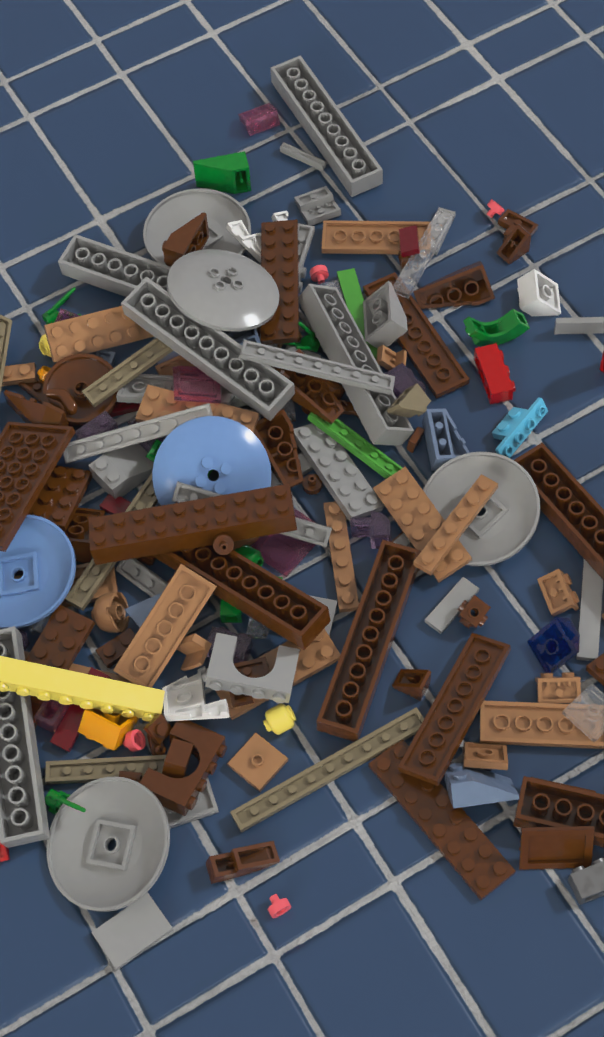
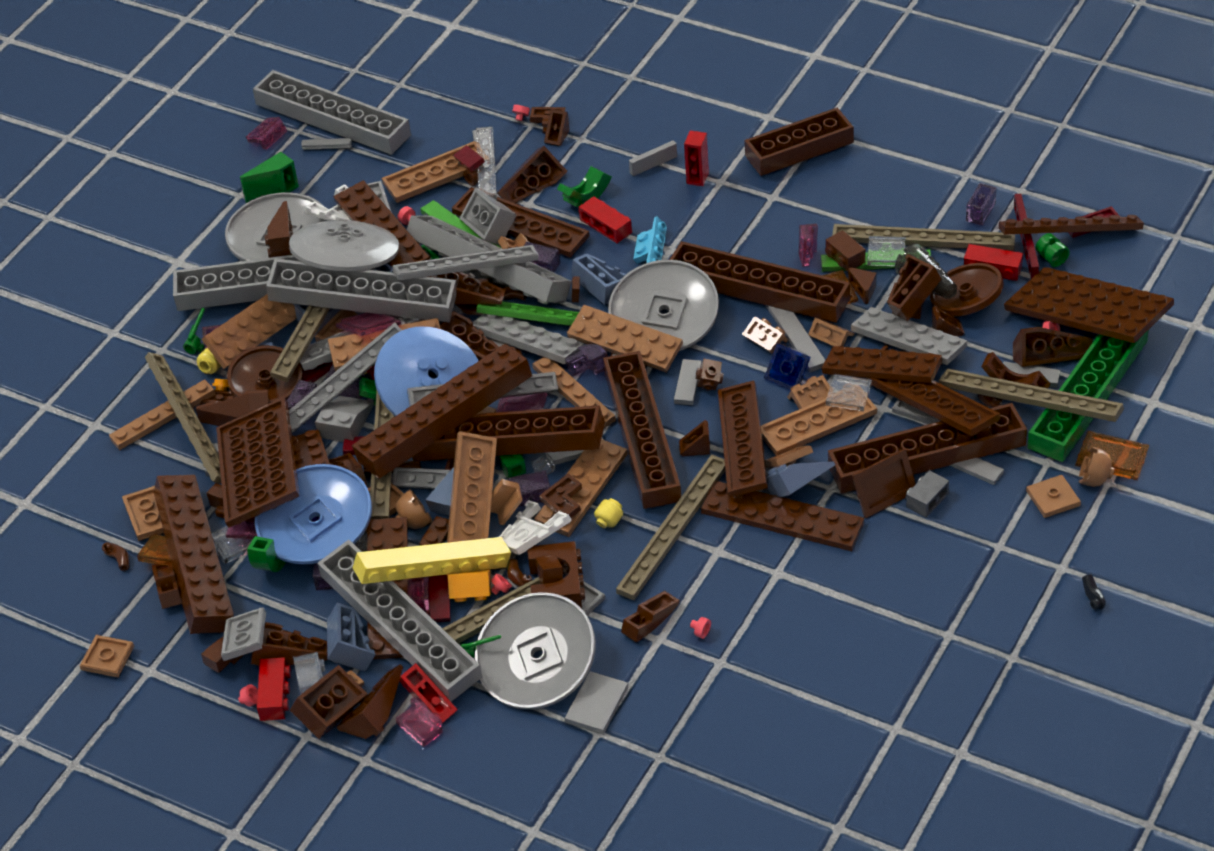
camera: 30 degrees left, 15 degrees down
(64, 398) = (256, 384): reddish brown arm -> none
(158, 729) = (516, 563): reddish brown plate -> none
(221, 540) = (480, 409): reddish brown tile -> none
(257, 762) = (611, 551): medium nougat plate -> none
(273, 686) = (548, 495): light grey arch -> none
(317, 206) = (366, 169): light grey slope -> none
(410, 402) = (556, 260): dark tan slope -> none
(455, 524) = (654, 321): medium nougat plate -> none
(538, 295) = (601, 153): white slope -> none

